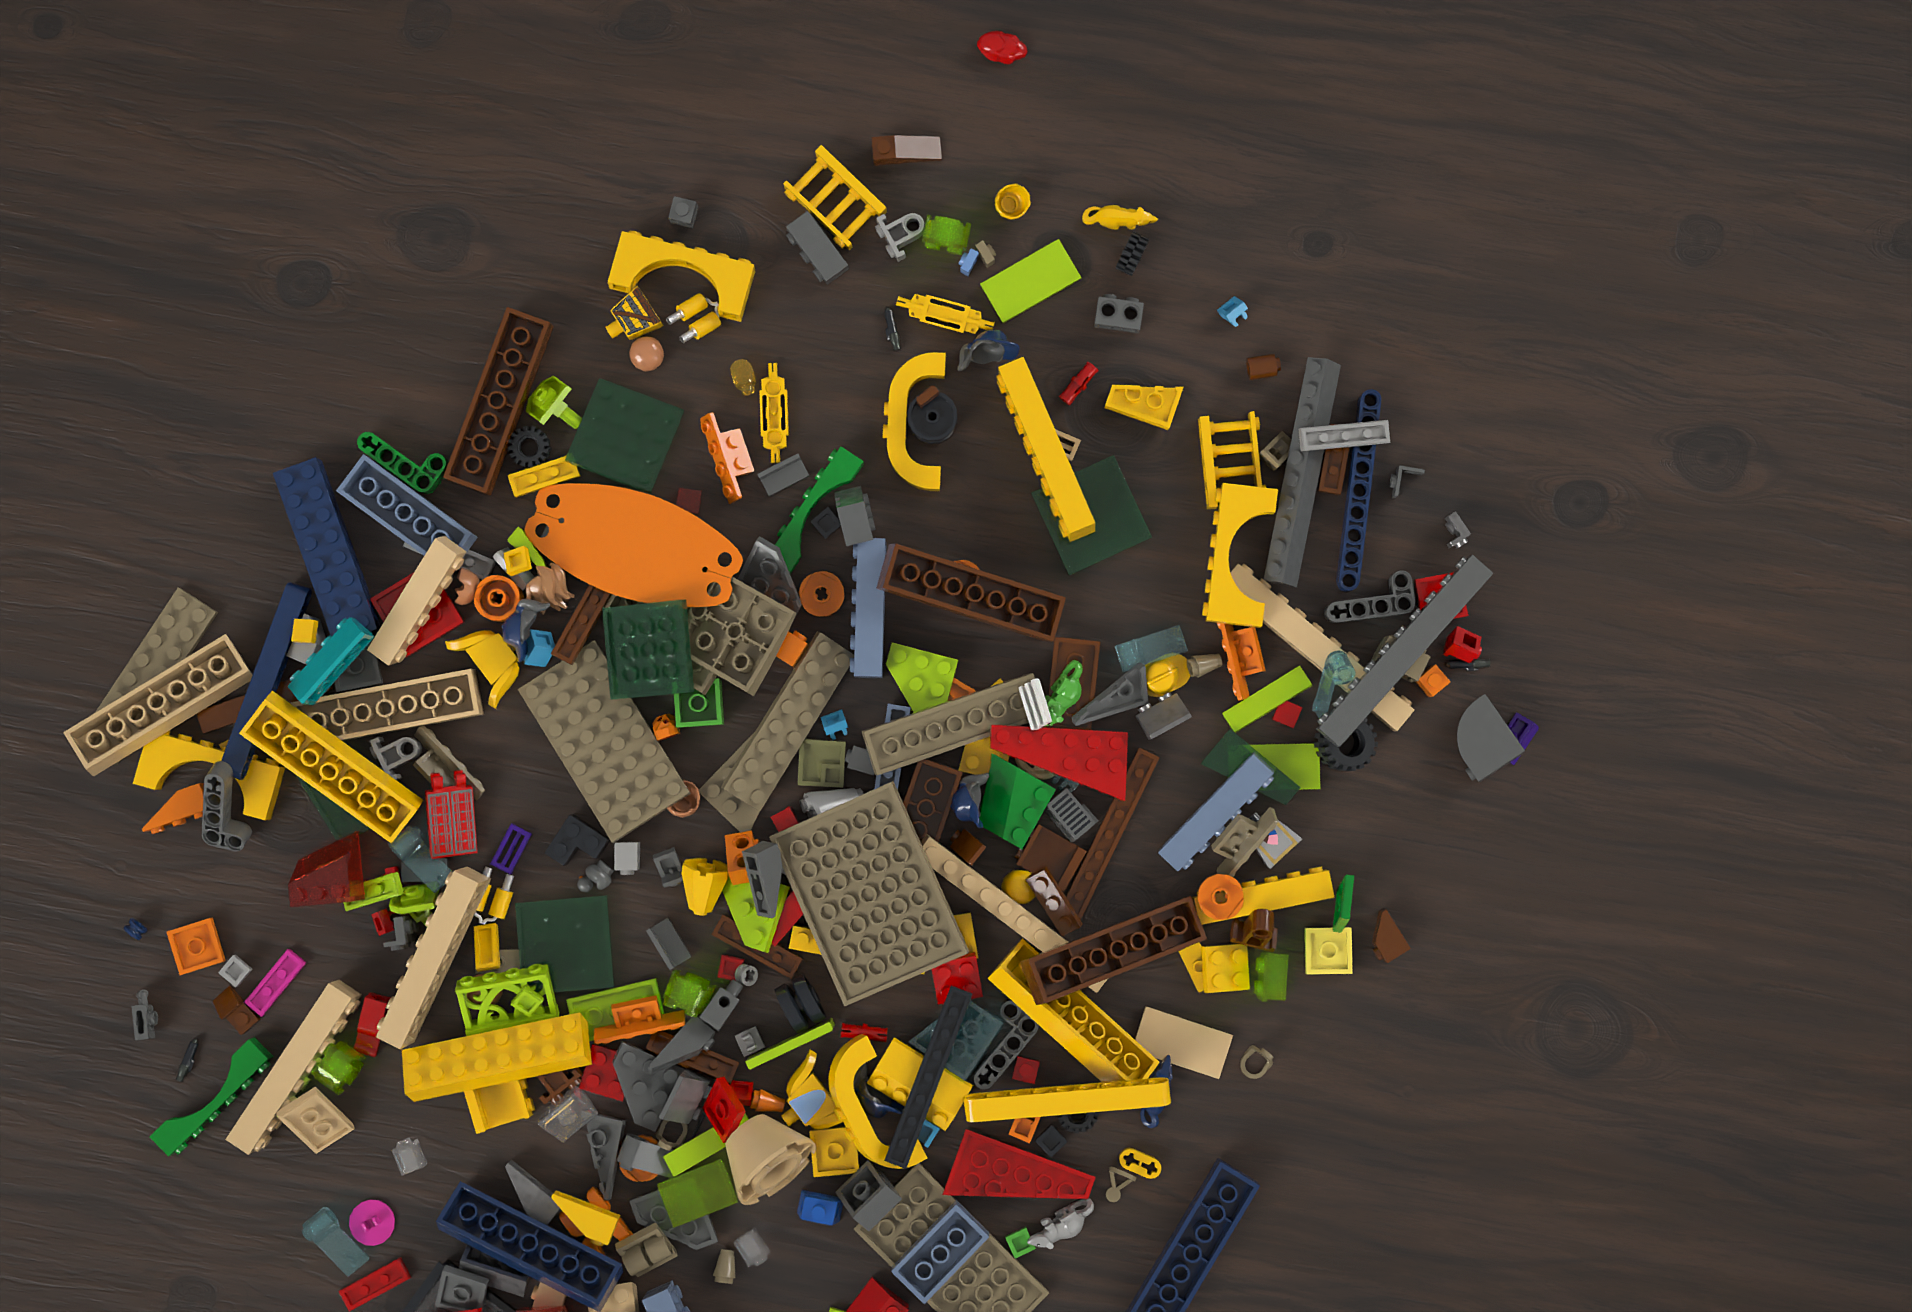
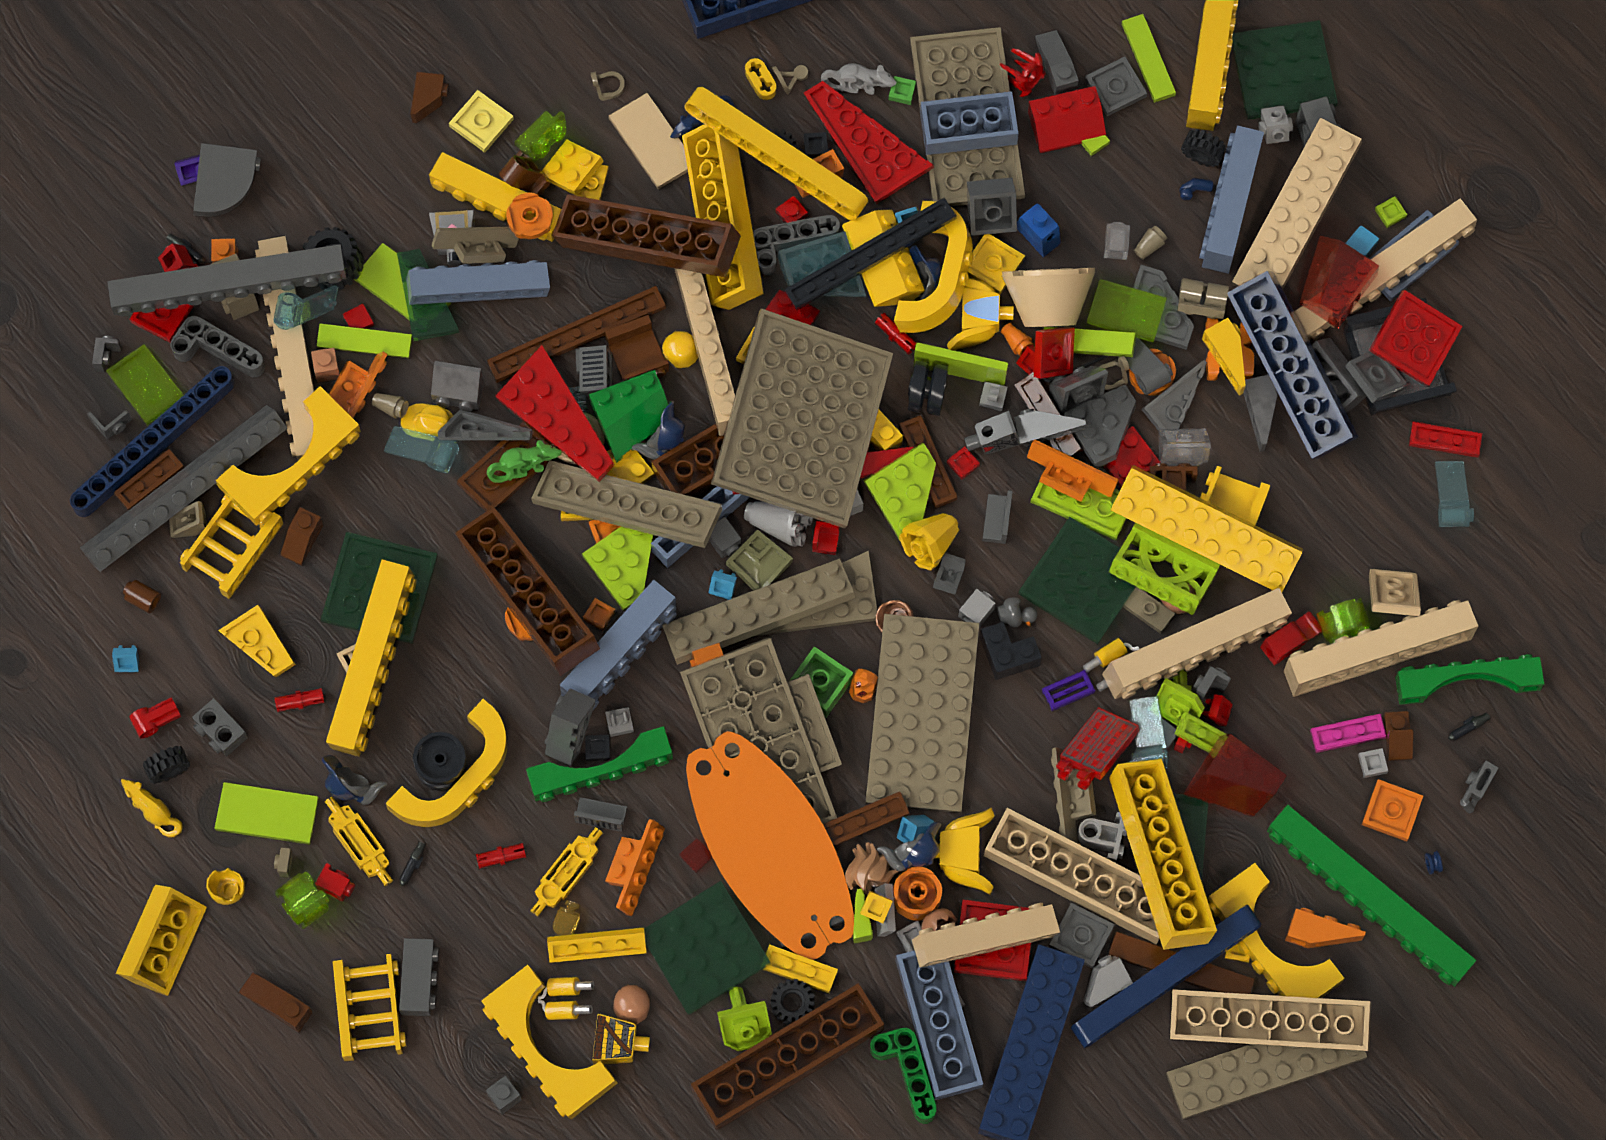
camera: 145 degrees left, 15 degrees down
(163, 865) = (1371, 896): none -> green brick
(217, 825) = (1297, 887): dark grey beam -> none
(304, 631) = (1100, 988): yellow tile -> none
(330, 662) = (1096, 938): teal slope -> none
(372, 1222) = (1411, 488): dark pink piece -> none
(409, 1156) = (1340, 512): clear brick -> none
(486, 947) = (1149, 624): yellow tile -> none
(527, 1001) = (1147, 553): lime tile -> none
(648, 649) = (825, 745): clear green plate -> none
(688, 993) = (1011, 463): clear neon green brick -> none
(706, 375) = (596, 945): none -> yellow plate
(735, 845) = (886, 535): orange brick -> none
(740, 974) = (954, 446): light grey bush -> none
(764, 875) = (875, 496): dark grey slope -> none
(769, 575) = (678, 732): dark grey plate -> none
(827, 556) = (619, 722): none -> light grey tile
(831, 386) = (500, 855): none -> red pin
(834, 590) = (636, 689): orange plate -> none
(897, 233) = (341, 935): light grey pin -> none
(910, 627) = (599, 614): none -> orange tile
(927, 396) = (430, 770): reddish brown tile -> none
(935, 268) = (334, 883): none -> red brick
(967, 846) = (695, 402): reddish brown slope -> none
(968, 261) = (303, 865): medium blue plate -> none
(1001, 47) = (123, 1025): red arm -> none
(1026, 126) = (161, 939): none -> yellow slope
(1033, 705) = (553, 468): white tile -> none
(1054, 901) = (662, 313): reddish brown plate -> none
(1175, 280) = (149, 720): none -> red piece
(1182, 507) = (301, 536): none -> reddish brown slope
(1279, 654) = (325, 365): none -> nougat brick
(1343, 903) = (439, 140): green tile -> none
(1344, 435) = (126, 484): light grey tile -> none
(1404, 532) = (145, 384): none -> clear neon green tile

